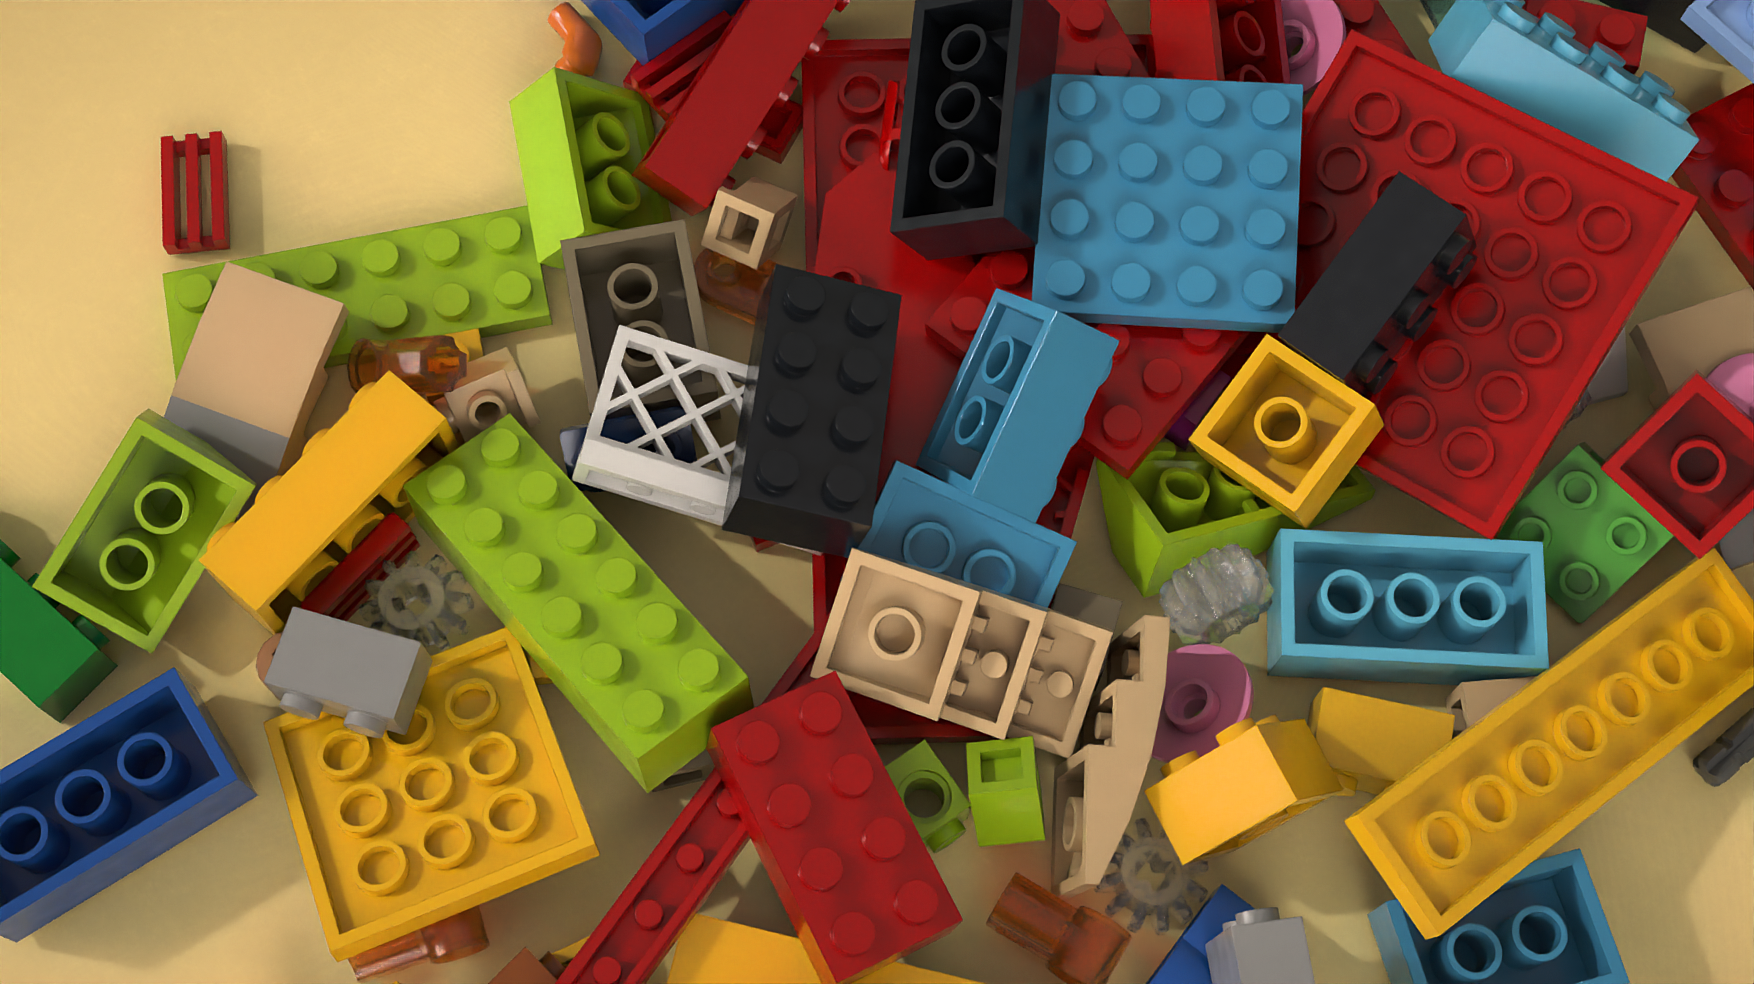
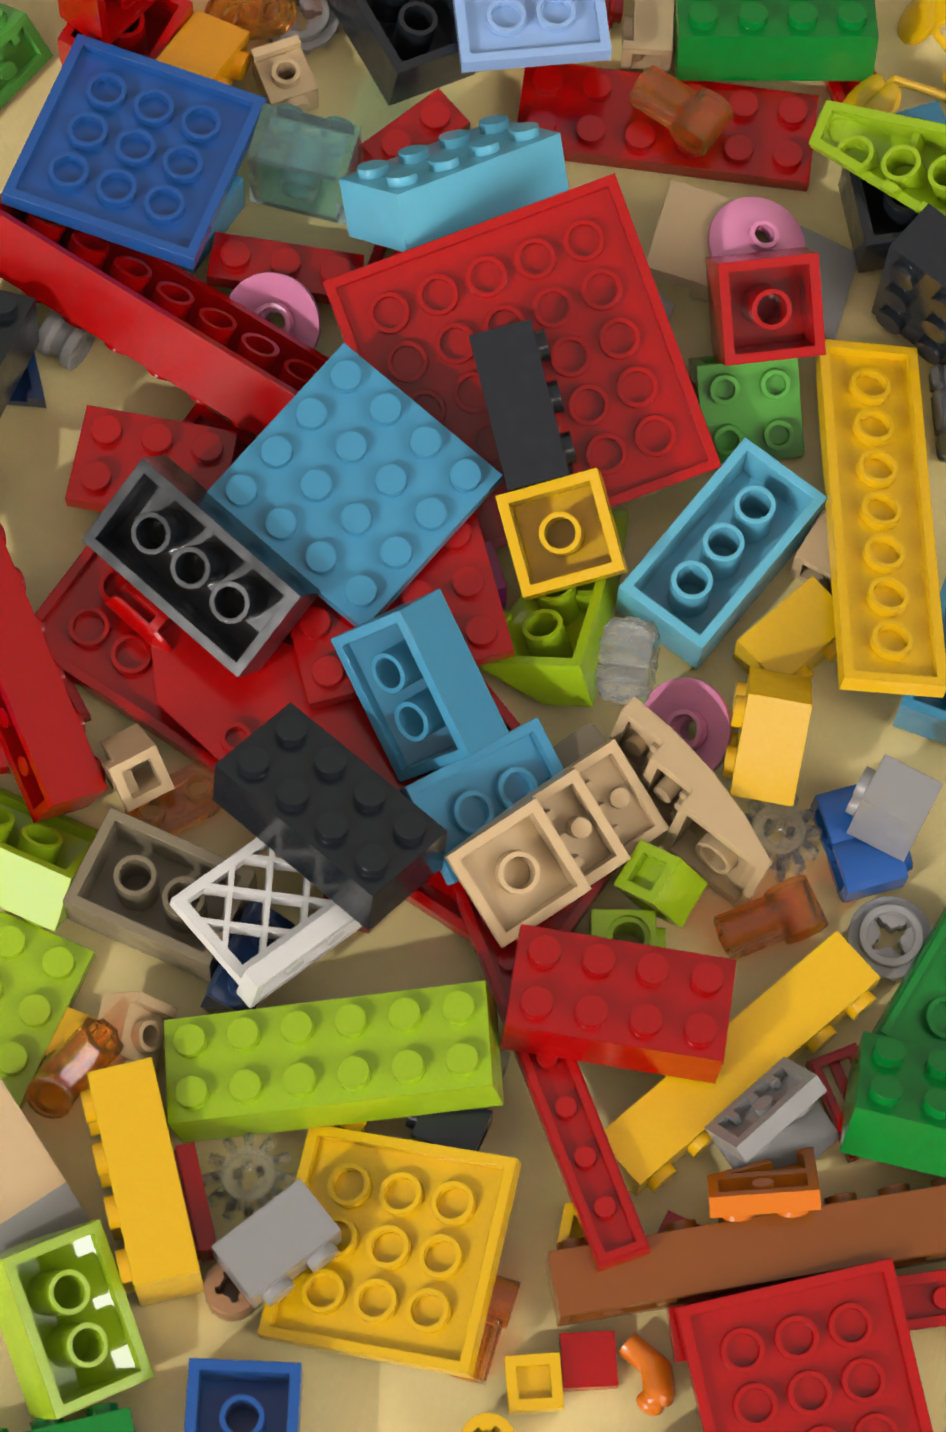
camera: 55 degrees left, 0 degrees up
(596, 771) = (454, 1129): none -> black brick

